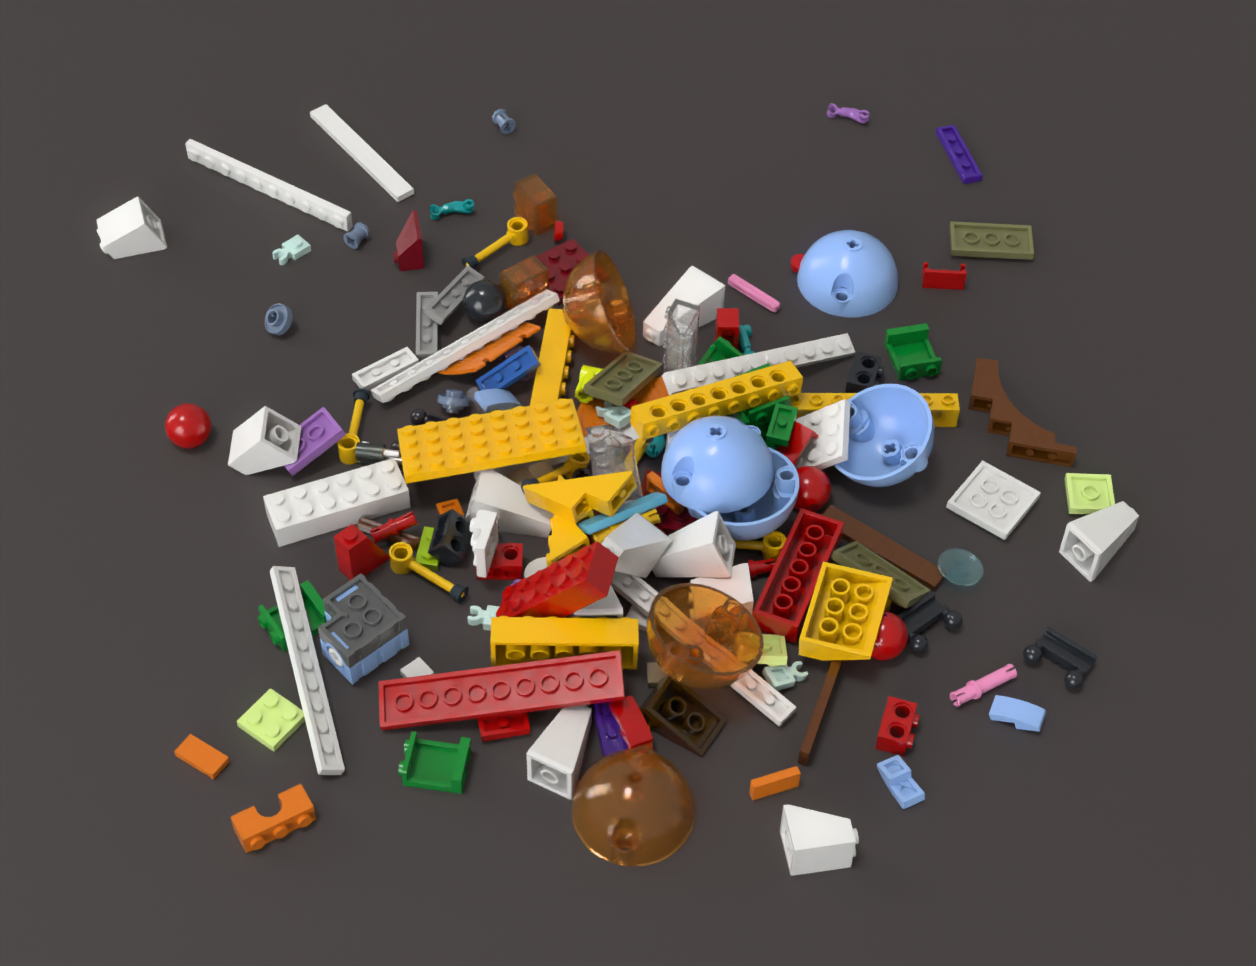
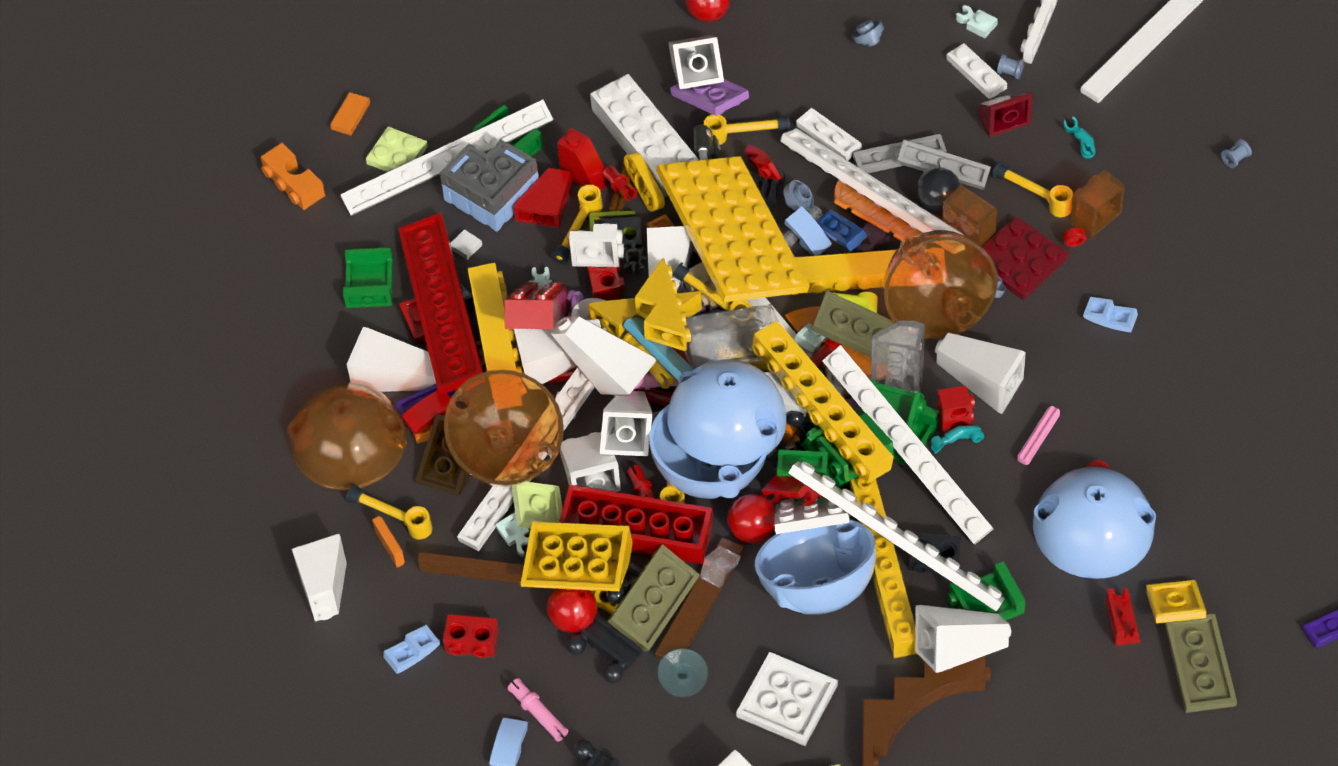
camera: 85 degrees right, 5 degrees up
(349, 260) = (976, 71): none -> white plate
(388, 504) = (644, 181): none -> yellow beam
(396, 588) = (545, 199): none -> red slope
(416, 410) = (762, 162): none -> red slope
(643, 227) = (1106, 314): none -> light blue slope
(751, 762) = (411, 517): none -> yellow piece
(856, 518) = (717, 565): none -> clear bracket
(857, 381) = (906, 540): none -> white plate
(934, 241) = (1175, 601): none -> yellow plate
(965, 366) = (957, 636): none -> white slope

